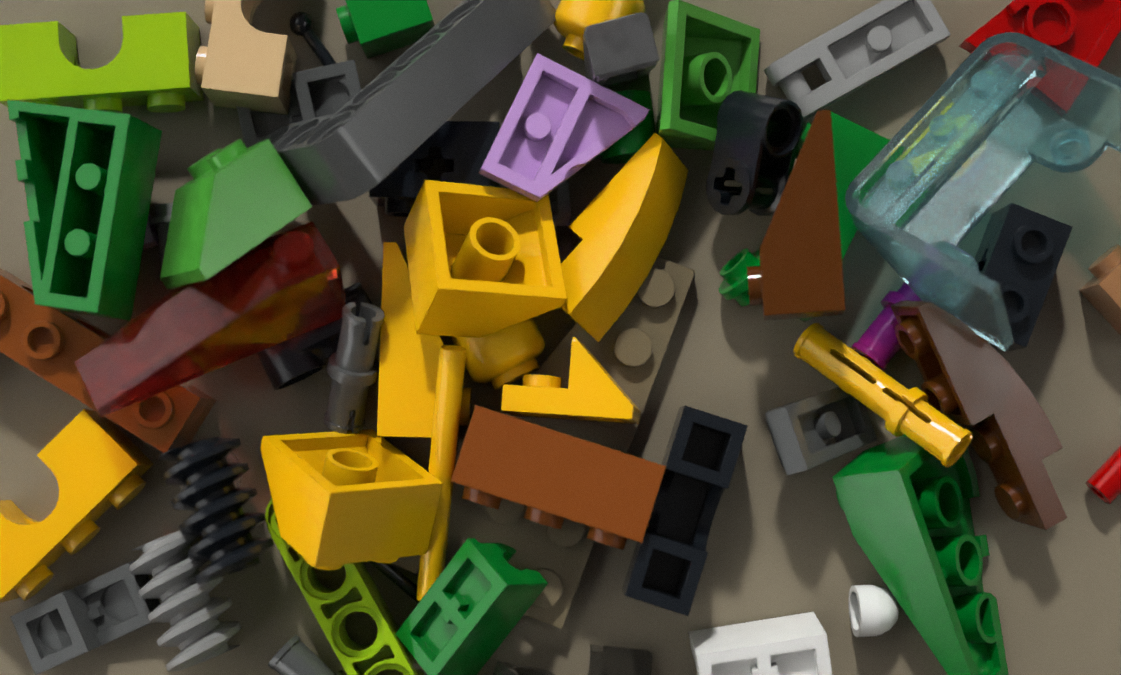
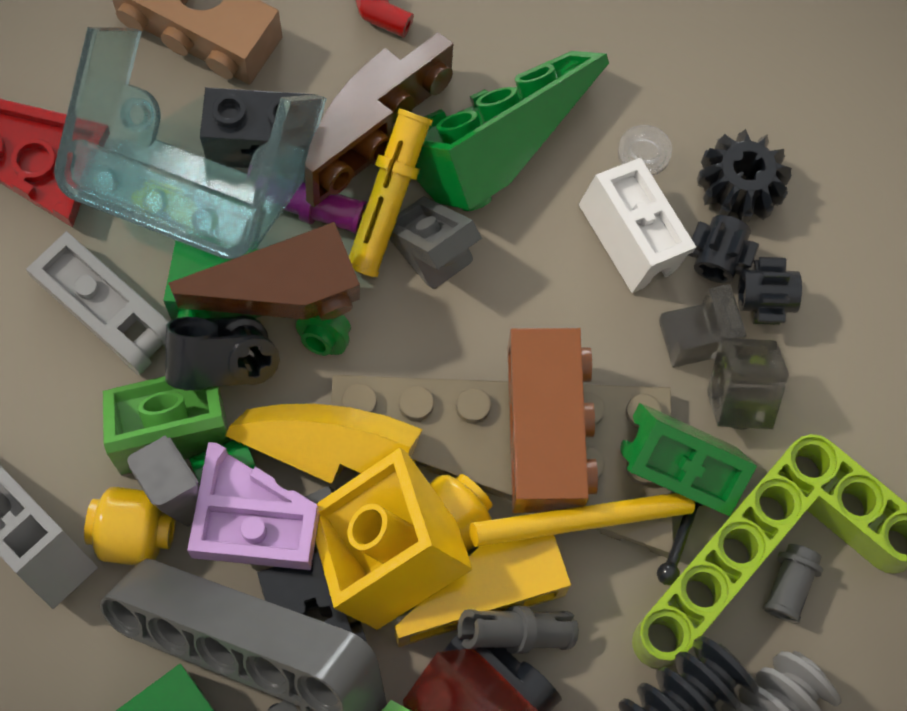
camera: 115 degrees left, 15 degrees down
(349, 497) = (632, 587): yellow slope -> none
(589, 395) = (473, 414): yellow slope -> none
(696, 473) = (488, 308): black arch -> none
(871, 610) = (562, 158): white hinge -> none

